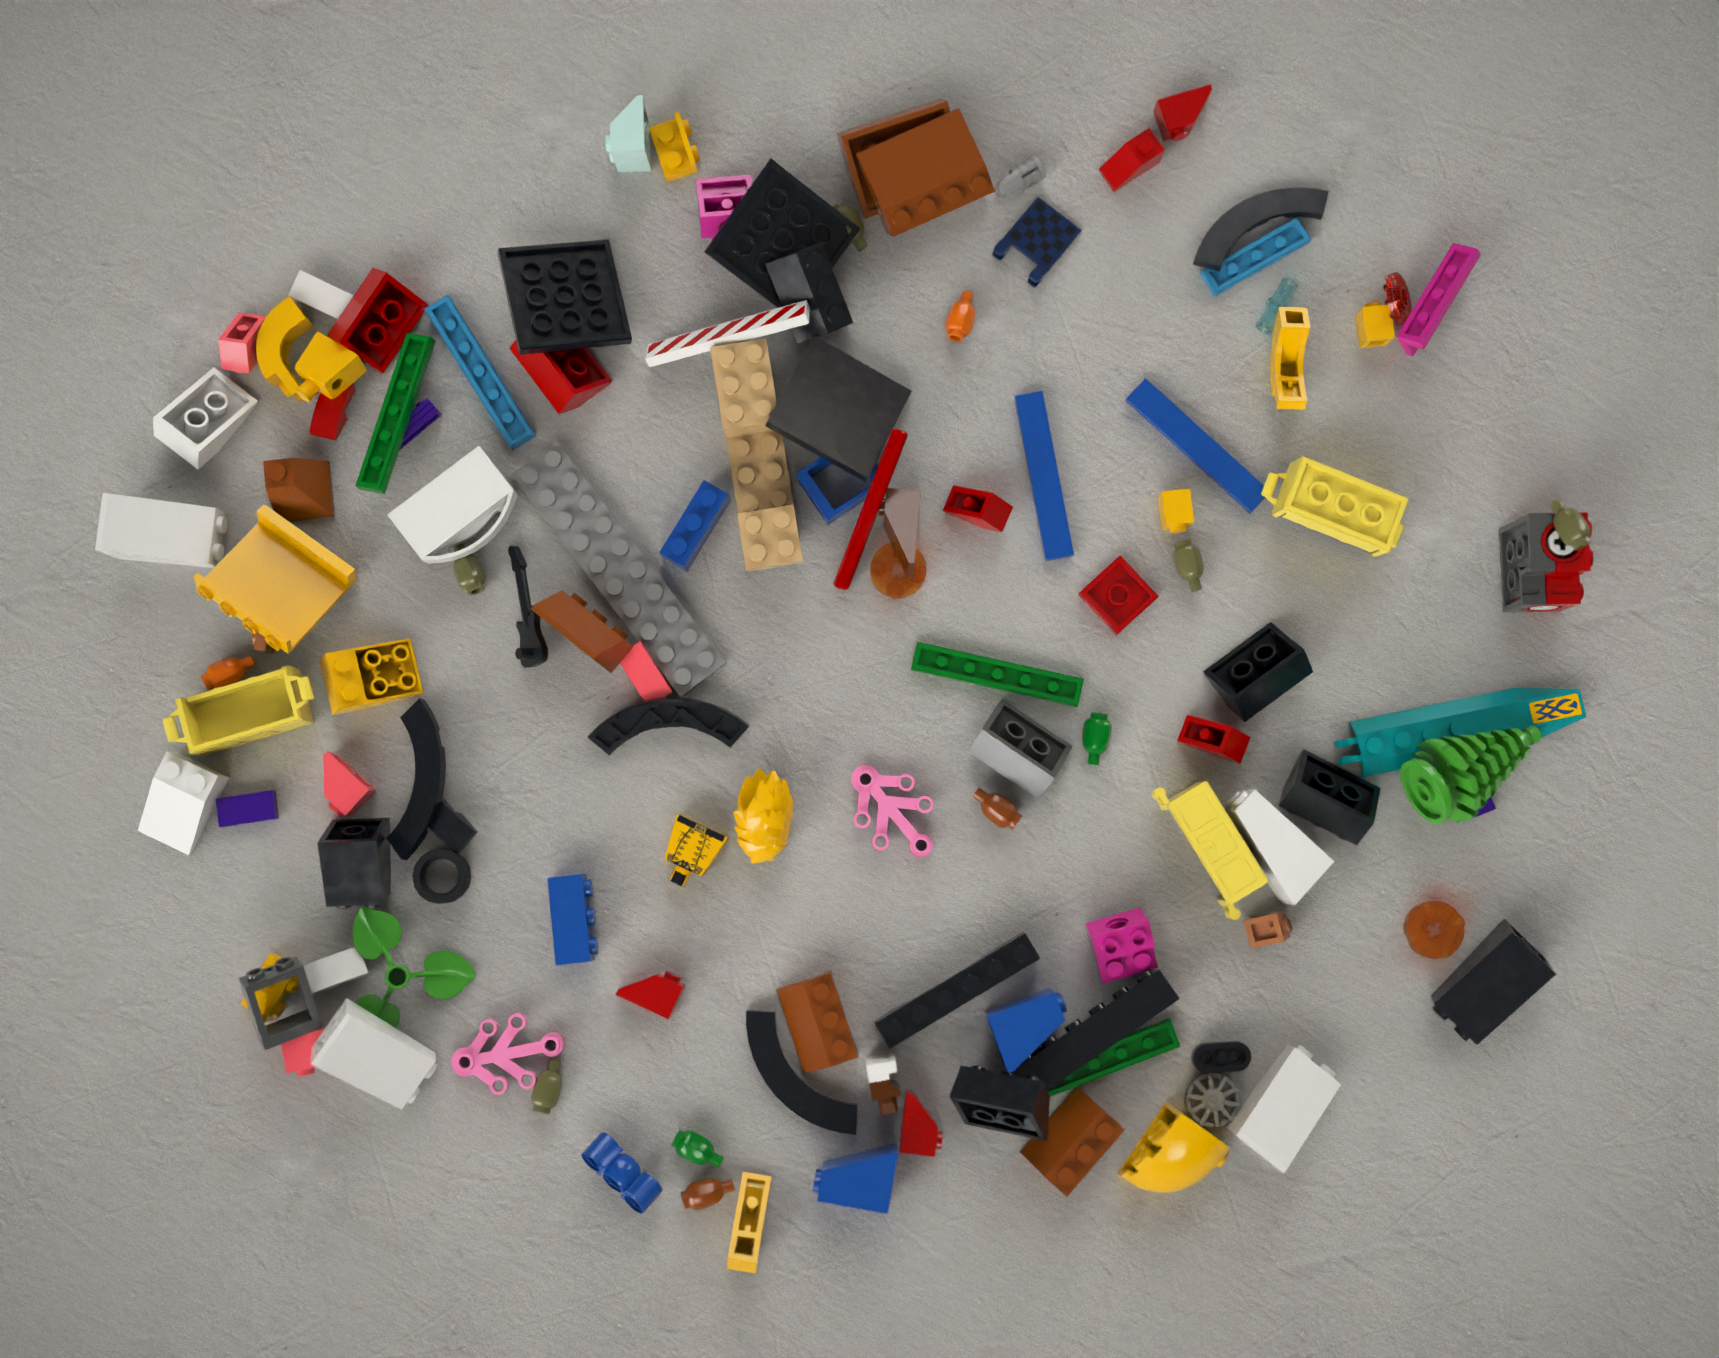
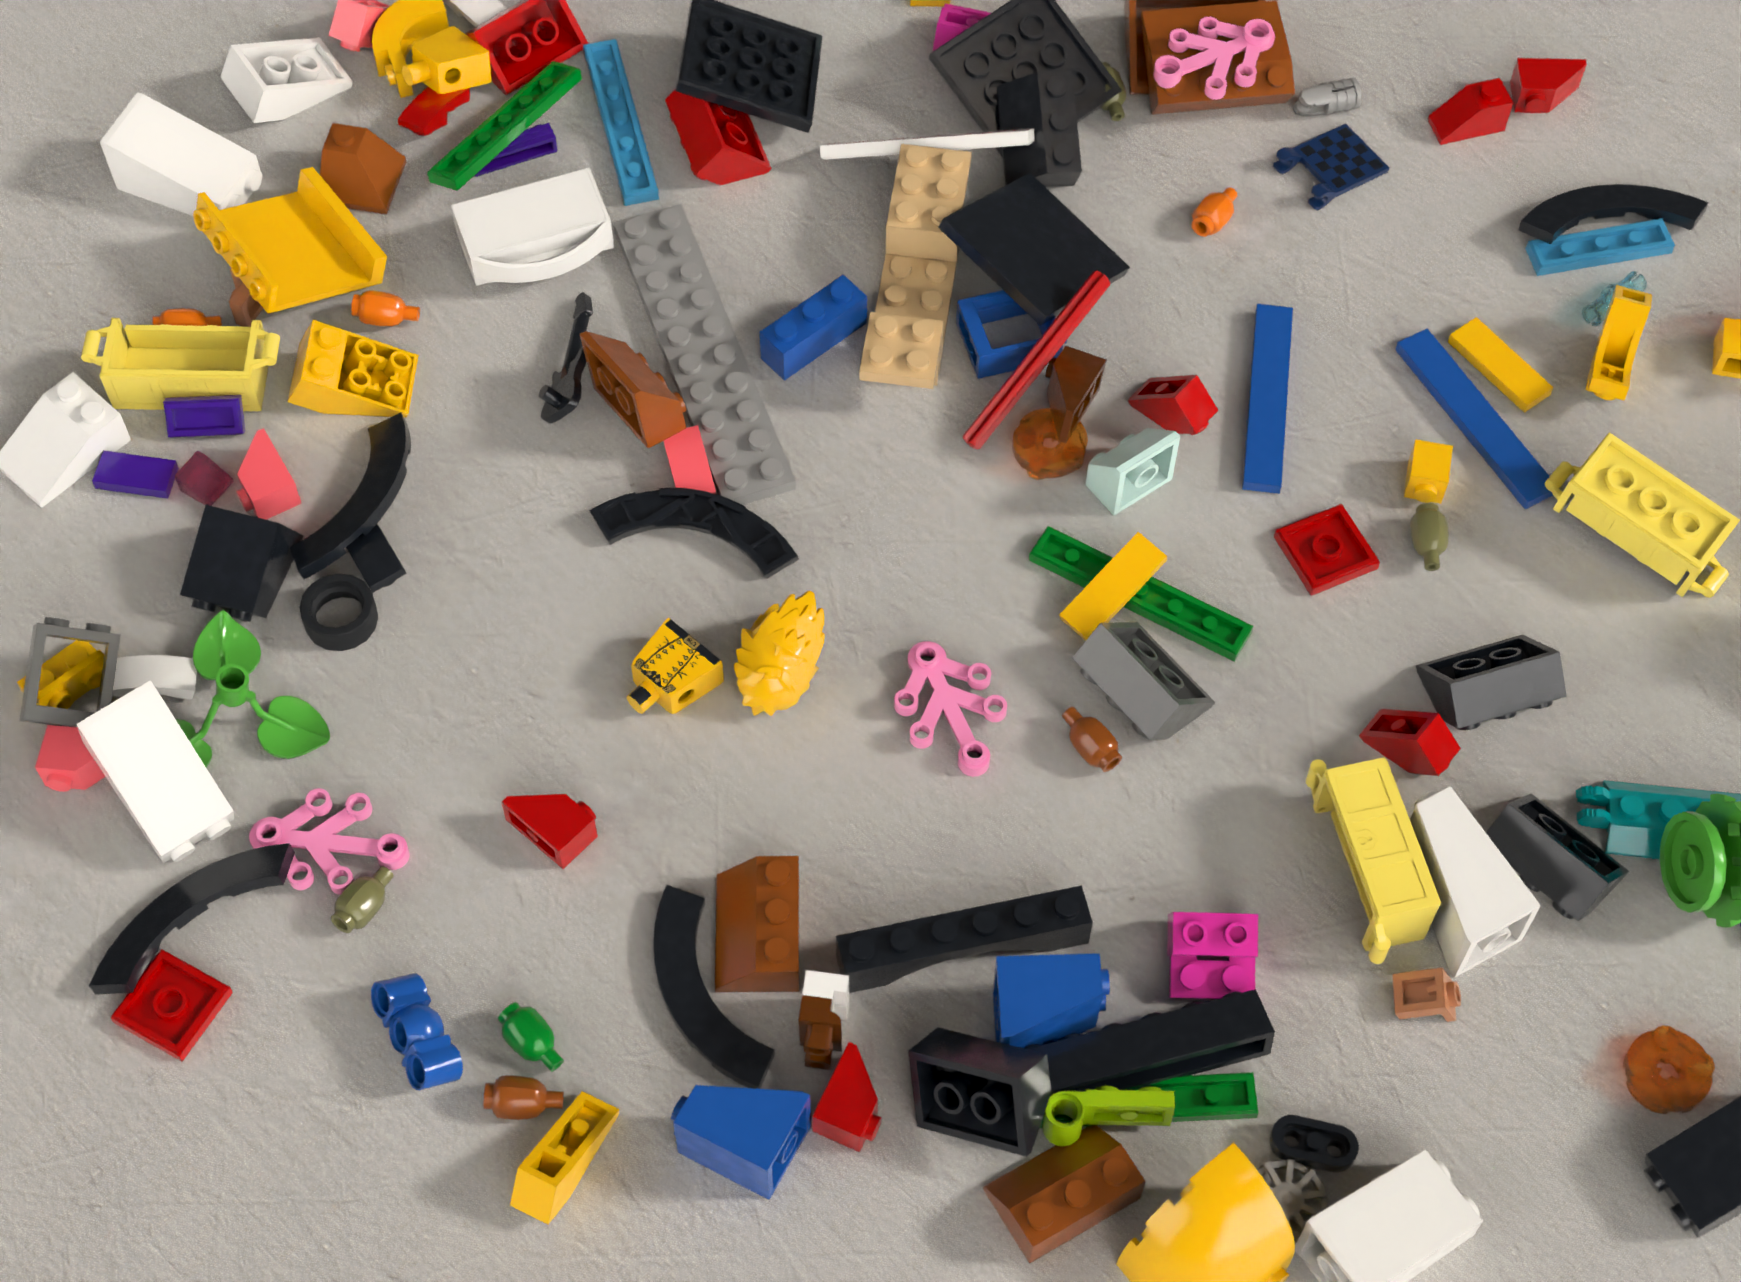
camera: 15 degrees right, 25 degrees down
(276, 747) = (204, 416): none -> dark purple tile
(299, 798) = (202, 479): none -> clear pink slope
(368, 610) = (382, 309): none -> orange plant
(427, 1132) = (179, 905): none -> black tile
(451, 1200) = (171, 1005): none -> red tile
(469, 572) = (519, 306): olive plant -> none
(572, 919) = (482, 706): blue brick -> none
(929, 181) = (1253, 37): none -> bright pink plant
(963, 576) = (1133, 468): none -> light aqua slope
(979, 682) = (1113, 586): none -> yellow tile
(1085, 1080) = (1105, 1107): none -> lime plate
(1096, 736) = (1251, 695): green plant -> none
(1205, 392) = (1500, 364): none -> yellow tile

